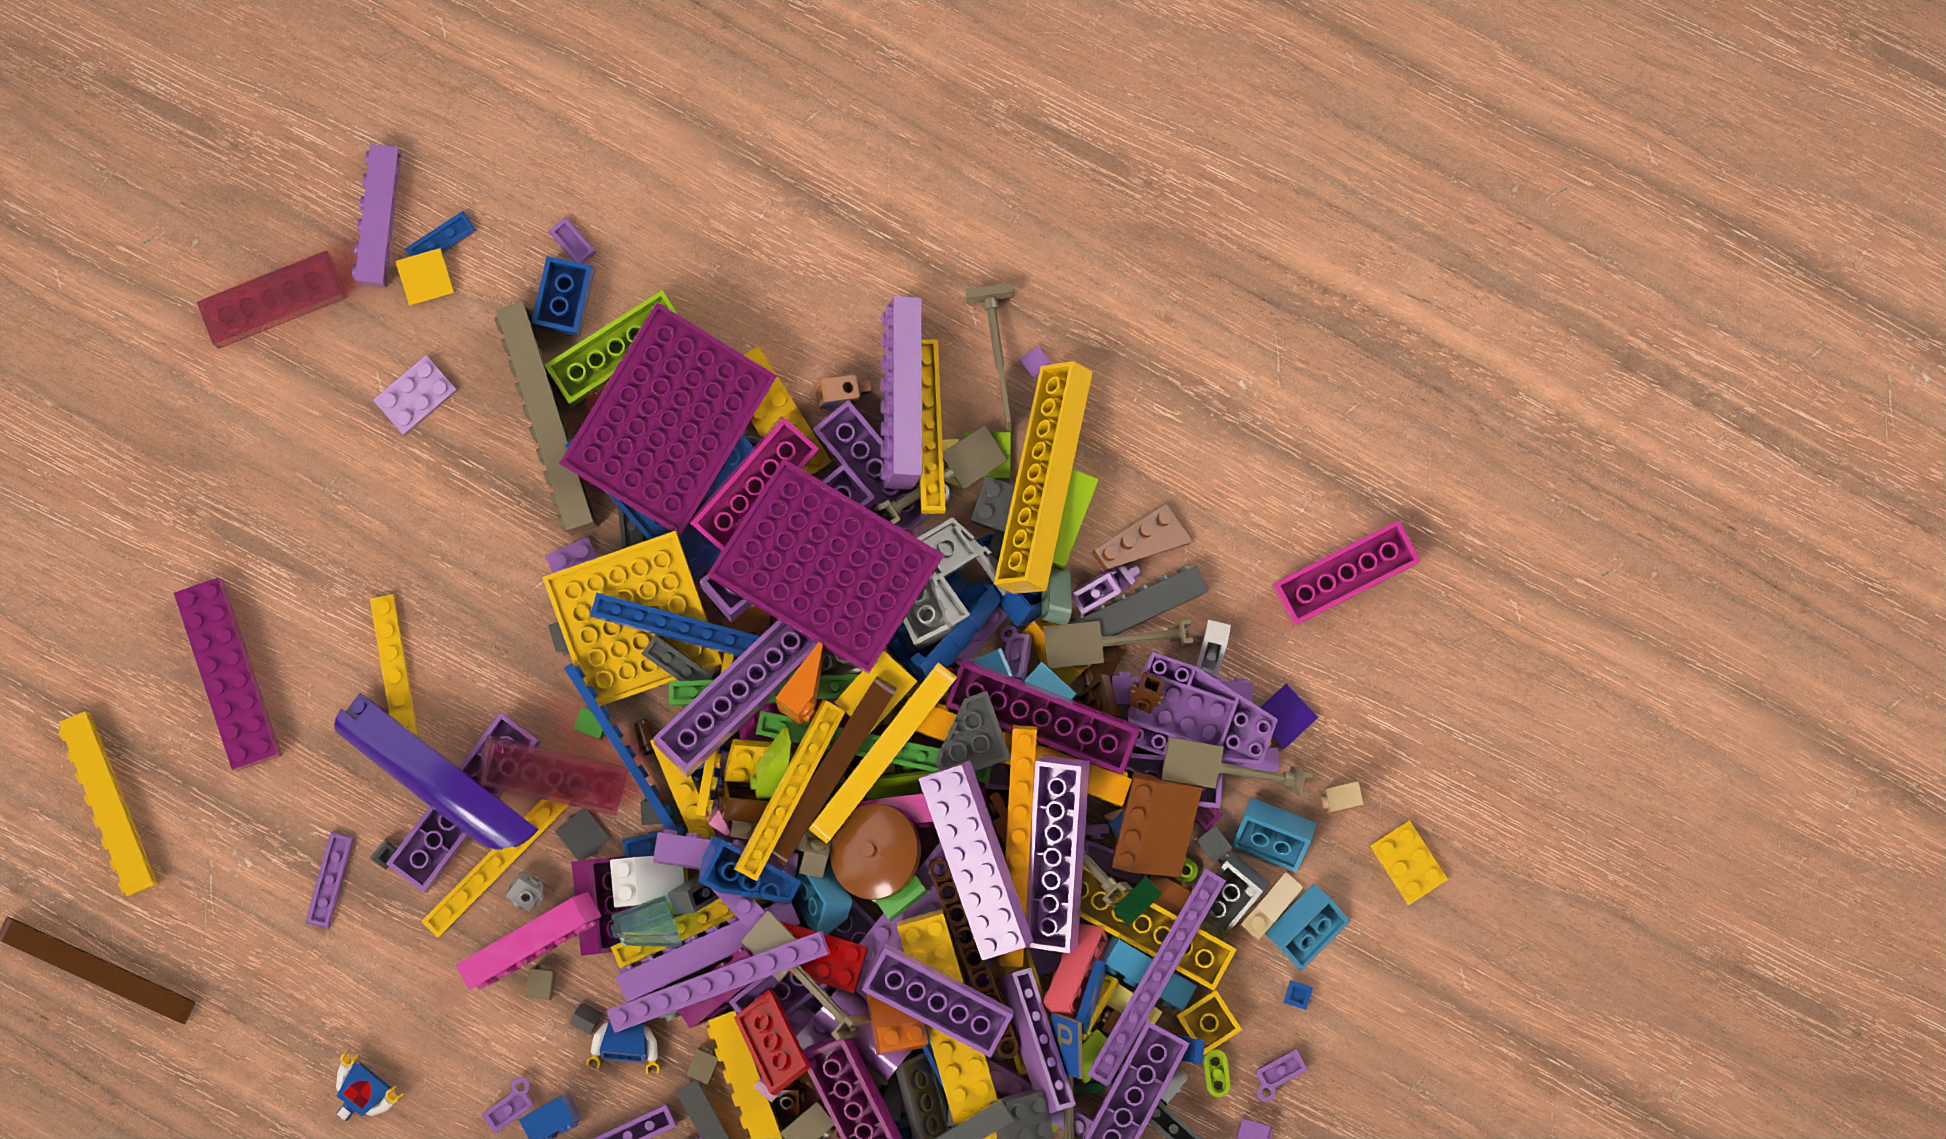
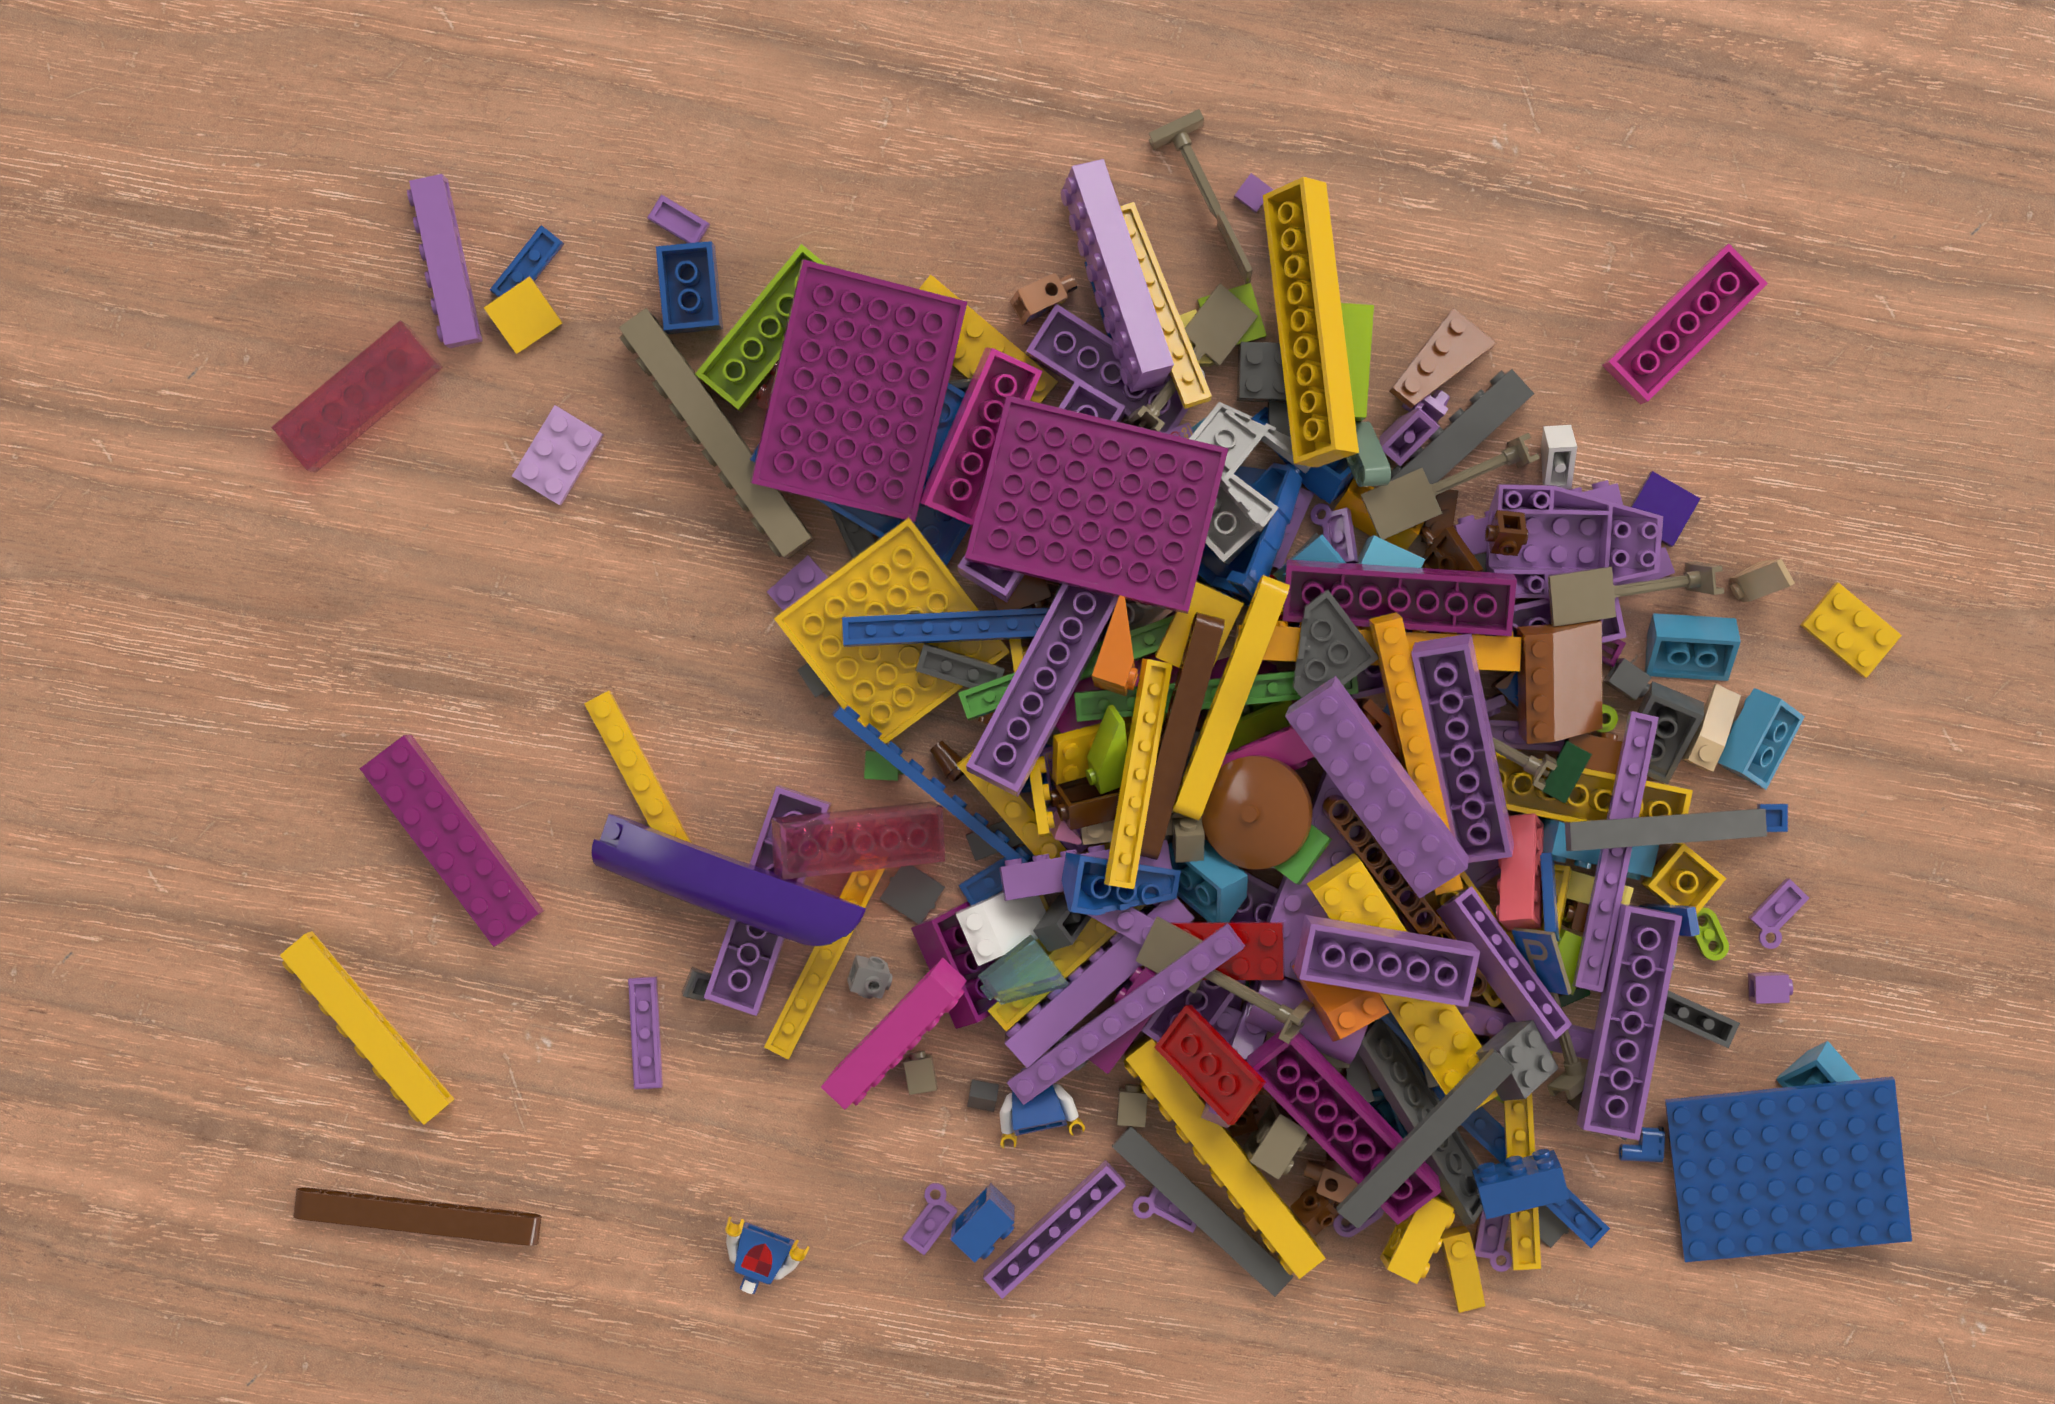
camera: 20 degrees left, 5 degrees up
(1202, 972) = (1665, 829): none -> dark grey tile

